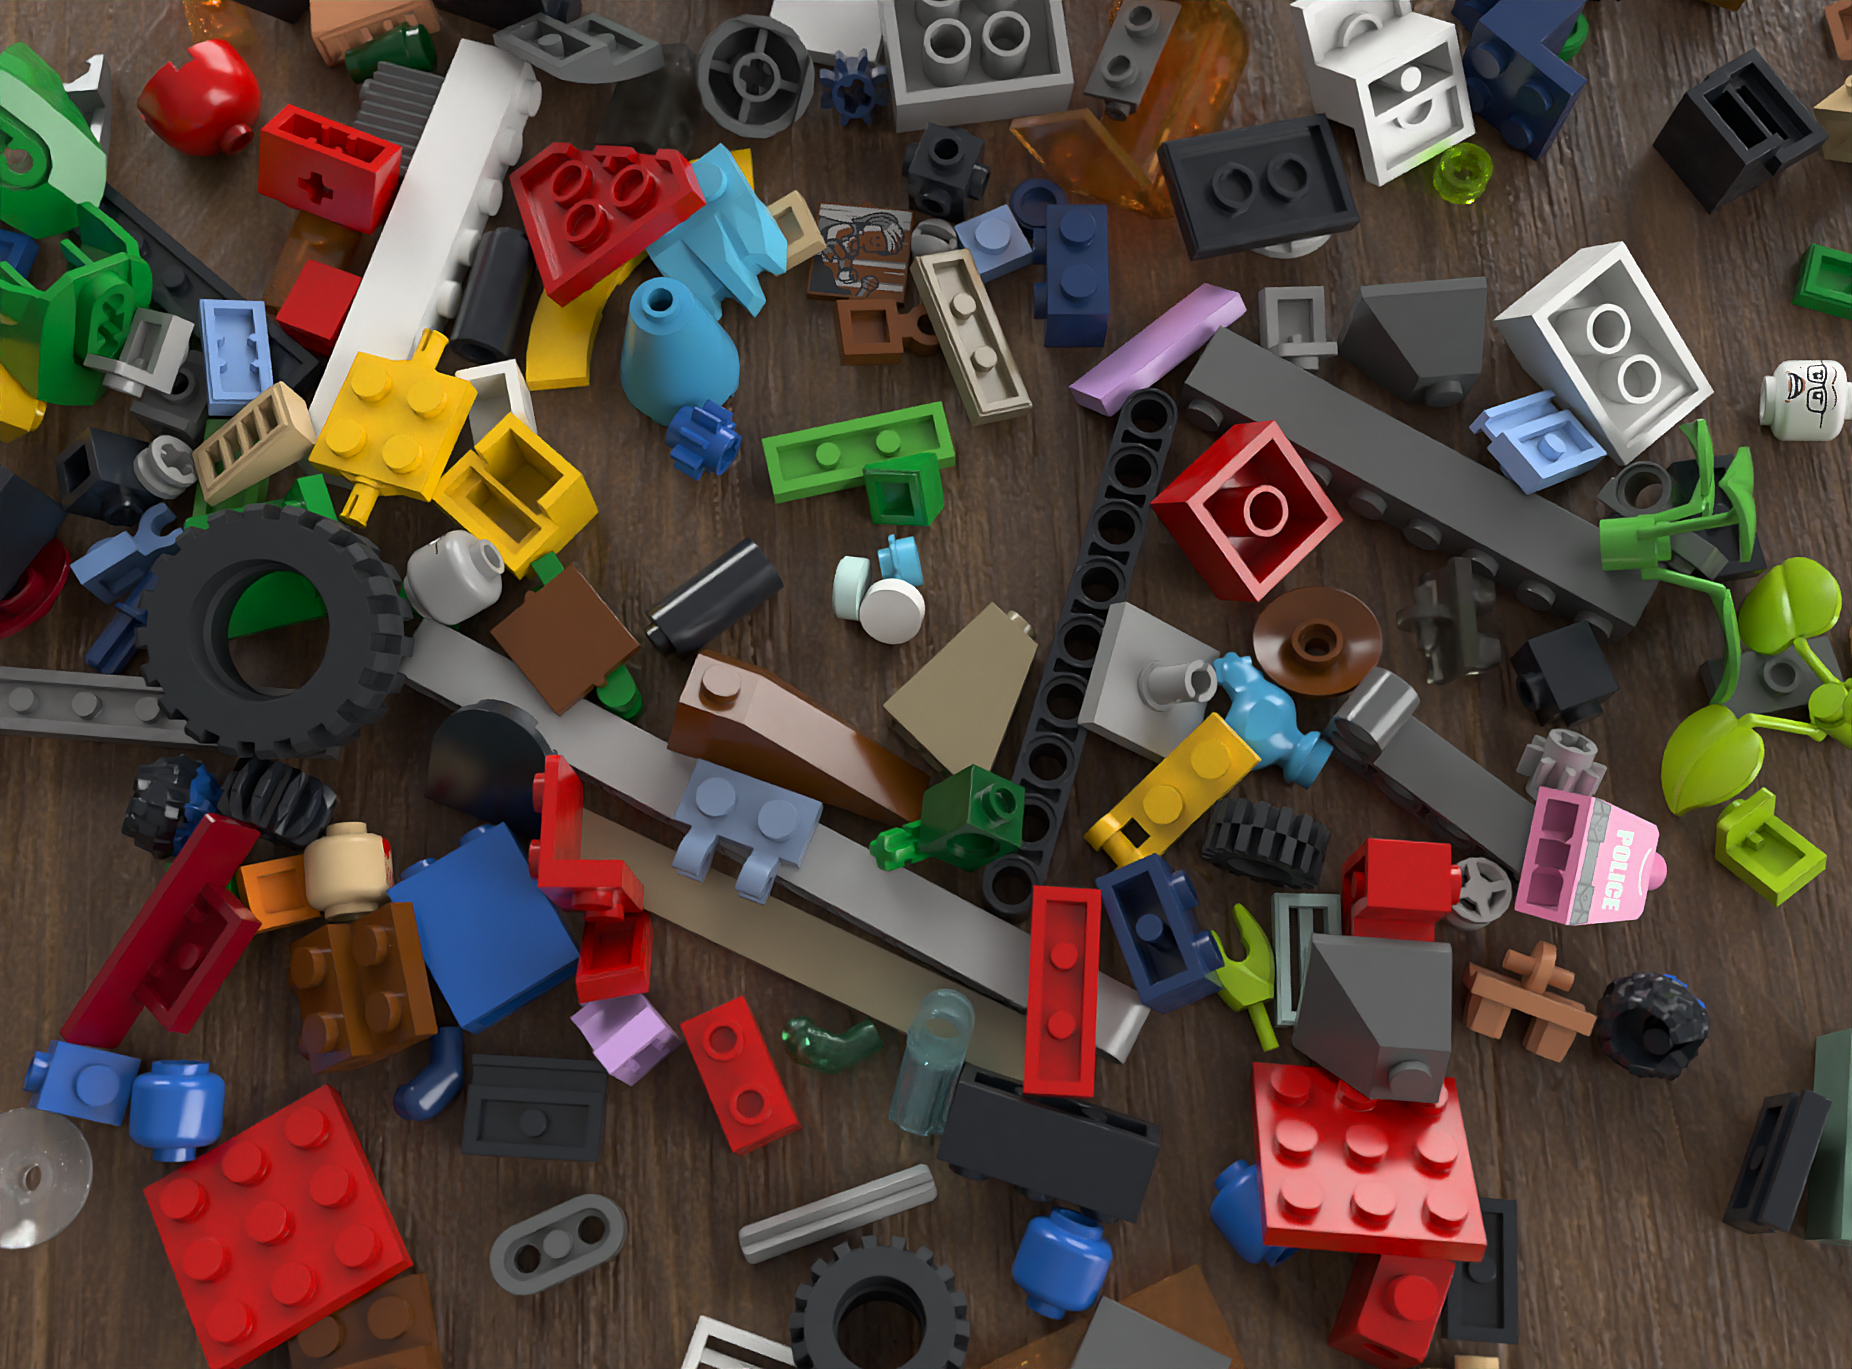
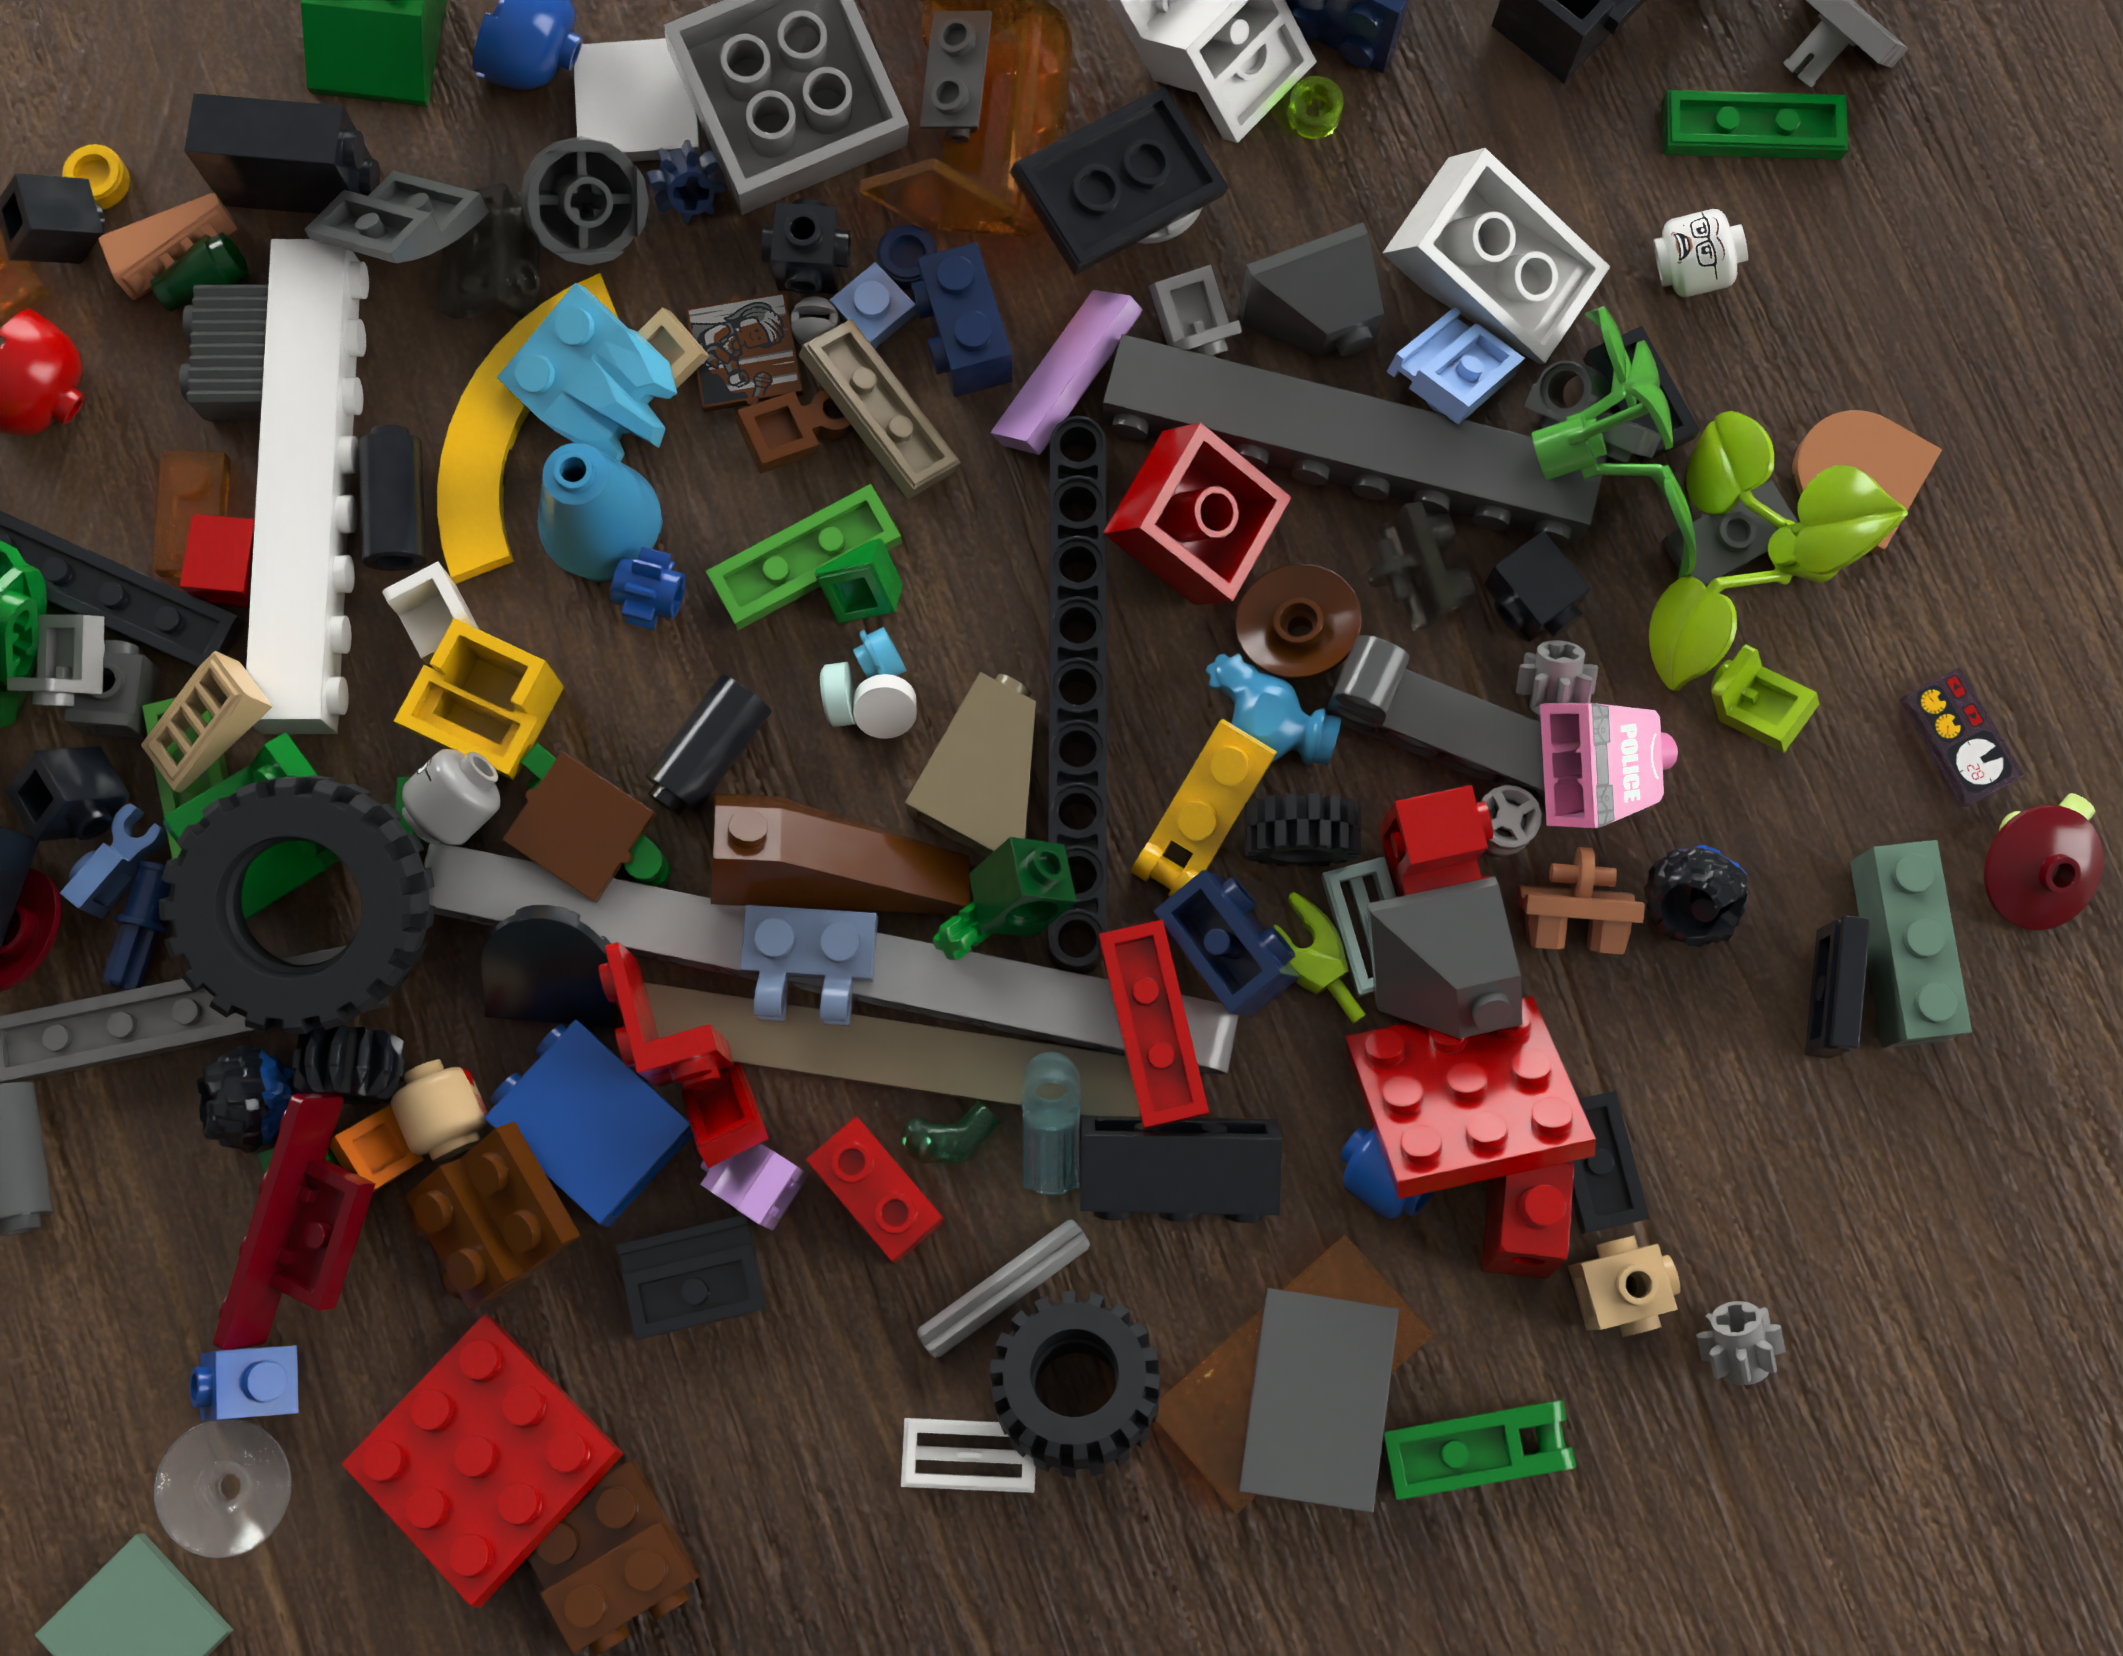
camera: 20 degrees left, 5 degrees up
(166, 467) = (121, 767): light grey bush -> none
(177, 1109) = (349, 1380): blue head -> none
(234, 353) = (152, 634): medium blue plate -> none
(328, 169) = (183, 416): red brick -> none
(393, 427) = (339, 664): yellow plate -> none
(438, 1082) = (589, 1282): dark blue arm -> none
(560, 1243) = (753, 1393): dark grey plate -> none
(599, 209) = (471, 383): red plate -> none
(1062, 1262) = (1222, 1269): blue head -> none
(1147, 683) = (1150, 708): light grey tile -> none

